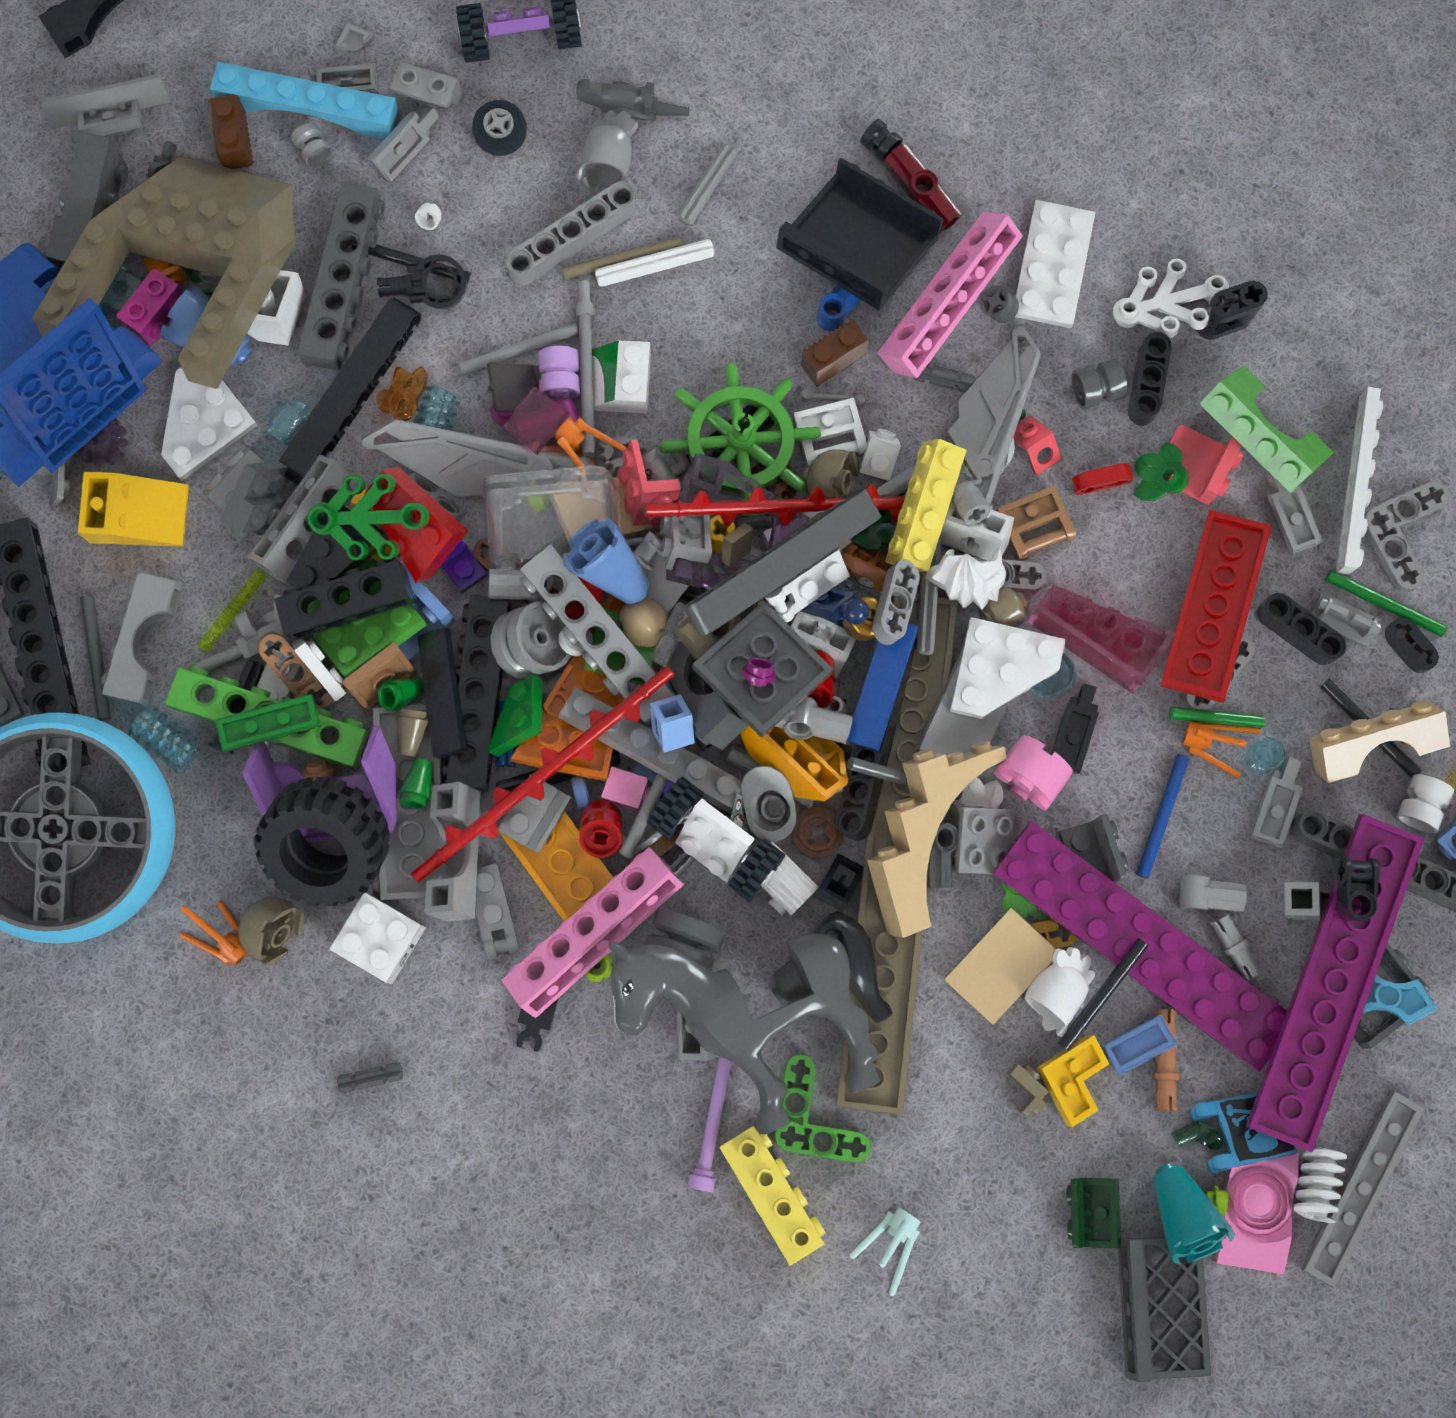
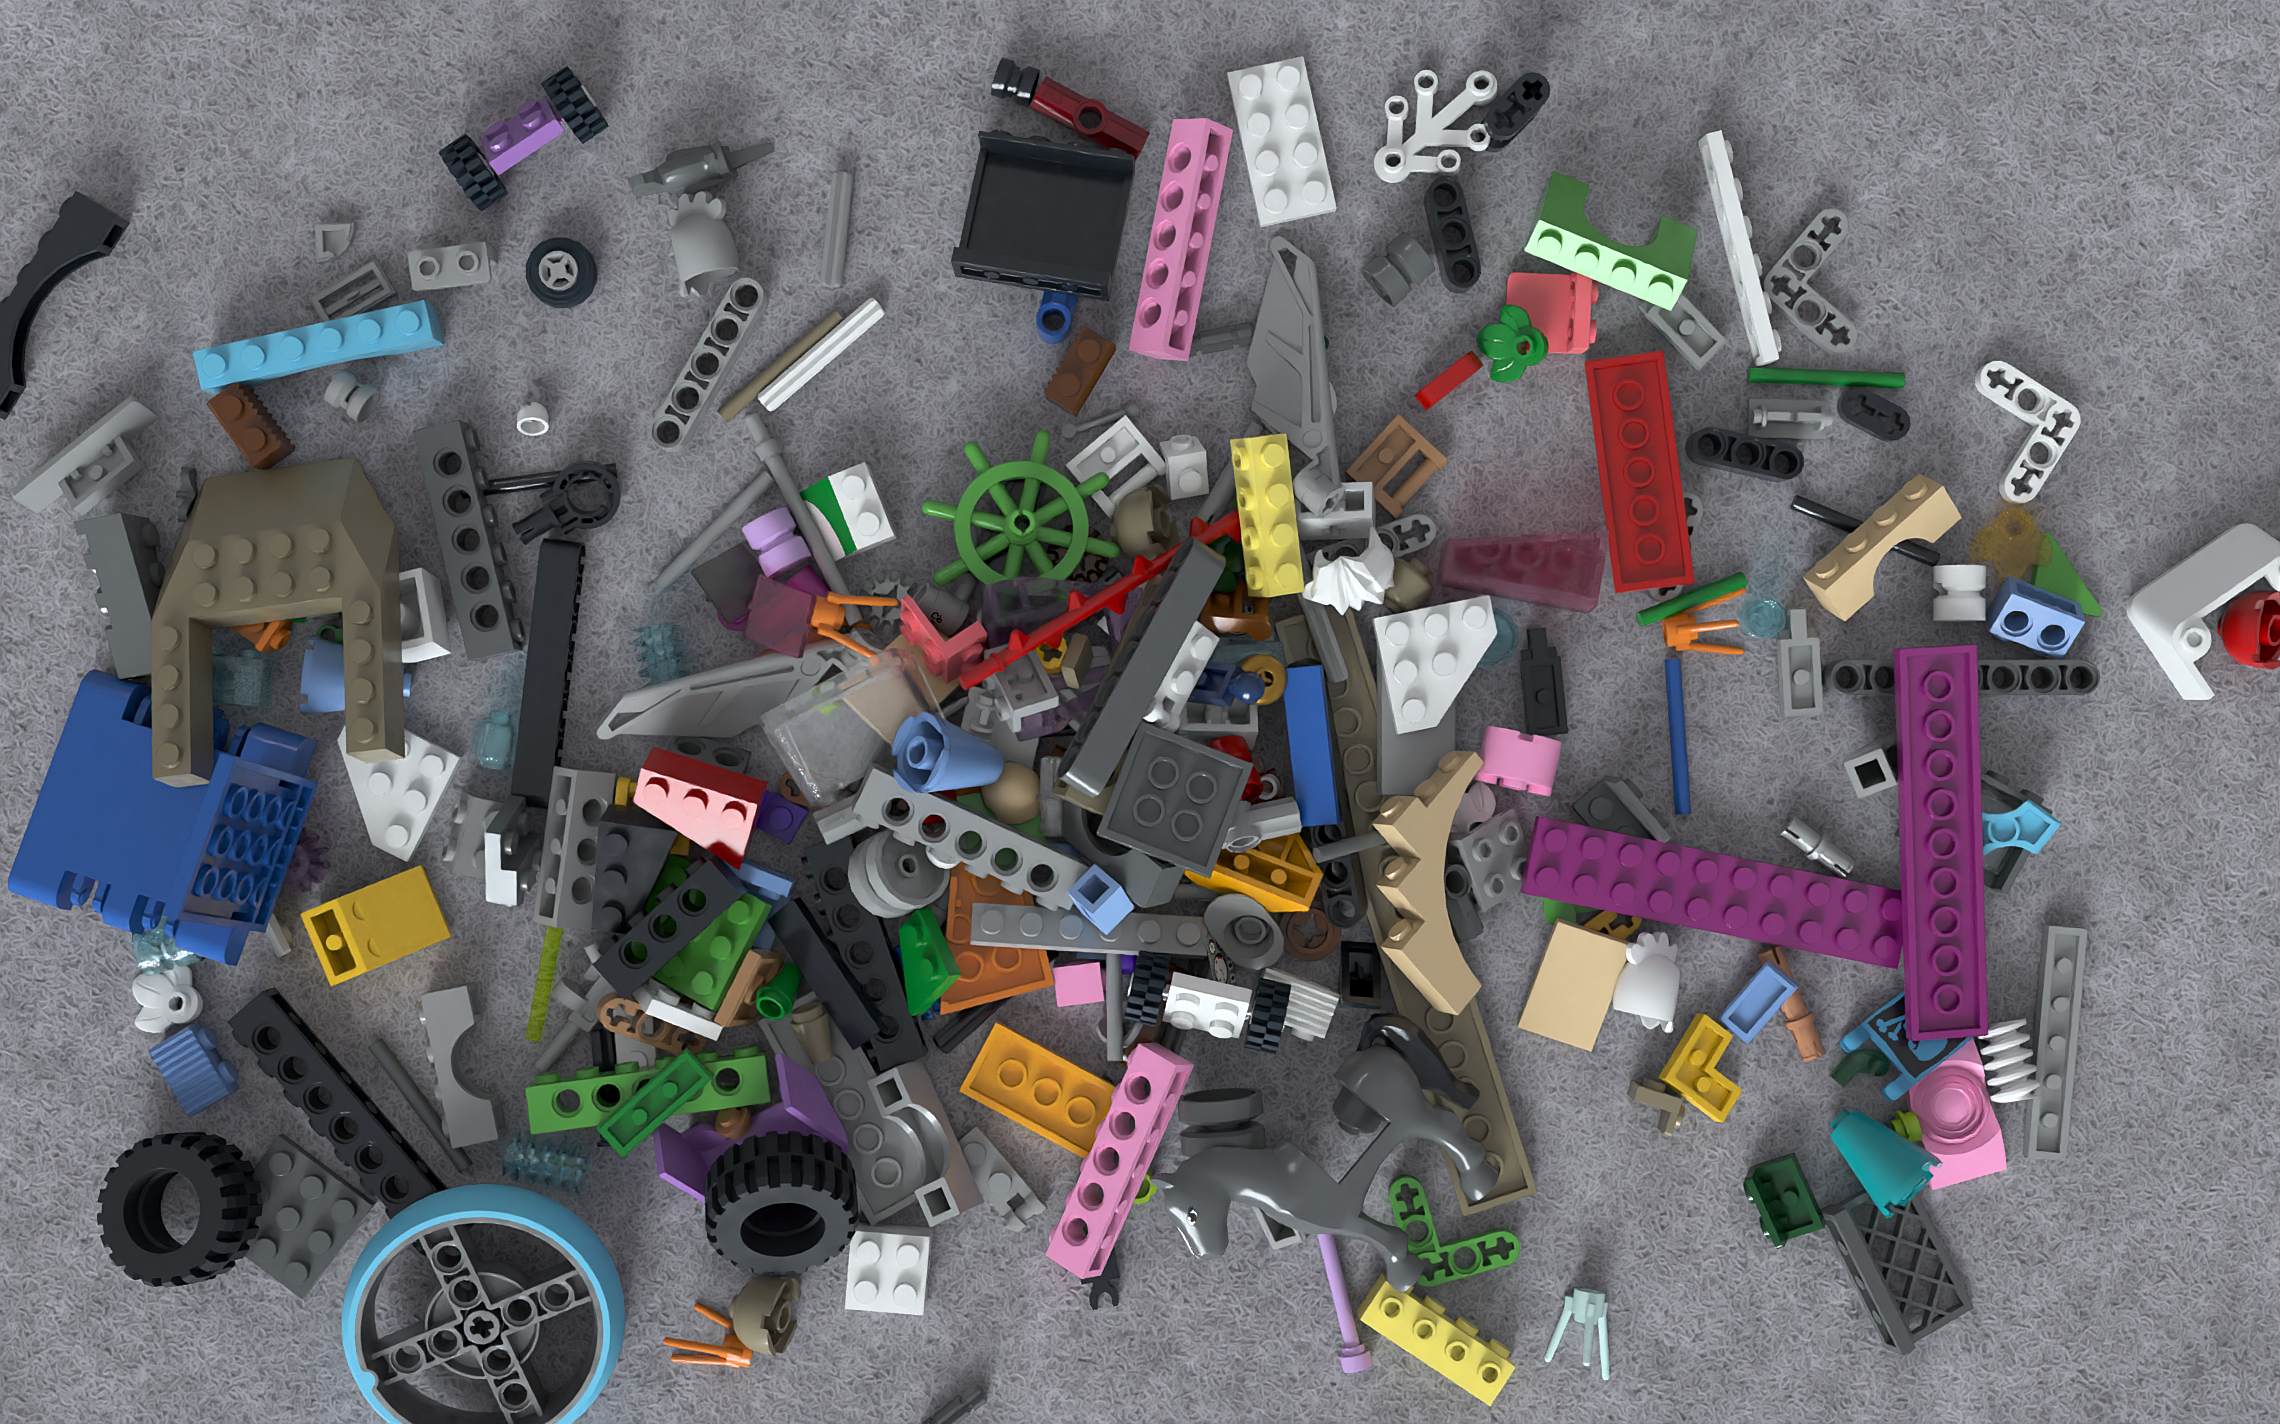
camera: 25 degrees left, 10 degrees up
(150, 305) = (272, 681): dark pink bracket -> none
(361, 517) = (648, 832): green plant -> none
(403, 143) = (459, 343): light grey hinge -> none
(403, 394) = (610, 647): clear orange plate -> none
(417, 785) = (850, 1087): green cone -> none
(533, 785) = (989, 1001): red plant -> none
(534, 820) = (993, 1057): light grey plate -> none
(580, 791) = (1031, 1007): medium blue tile -> none
(601, 829) = (1074, 1041): red wheel -> none
(759, 671) = (1175, 811): magenta plate -> none
(887, 611) = (1279, 666): light grey beam -> none
(996, 297) = (1233, 228): dark grey wheel -> none
(1033, 438) = (1352, 367): coral bracket -> none
(1103, 994) = (1697, 969): black bar -> none
(1205, 894) = (1761, 803): light grey piece -> none
(1358, 885) = (1922, 730): black piece -> none

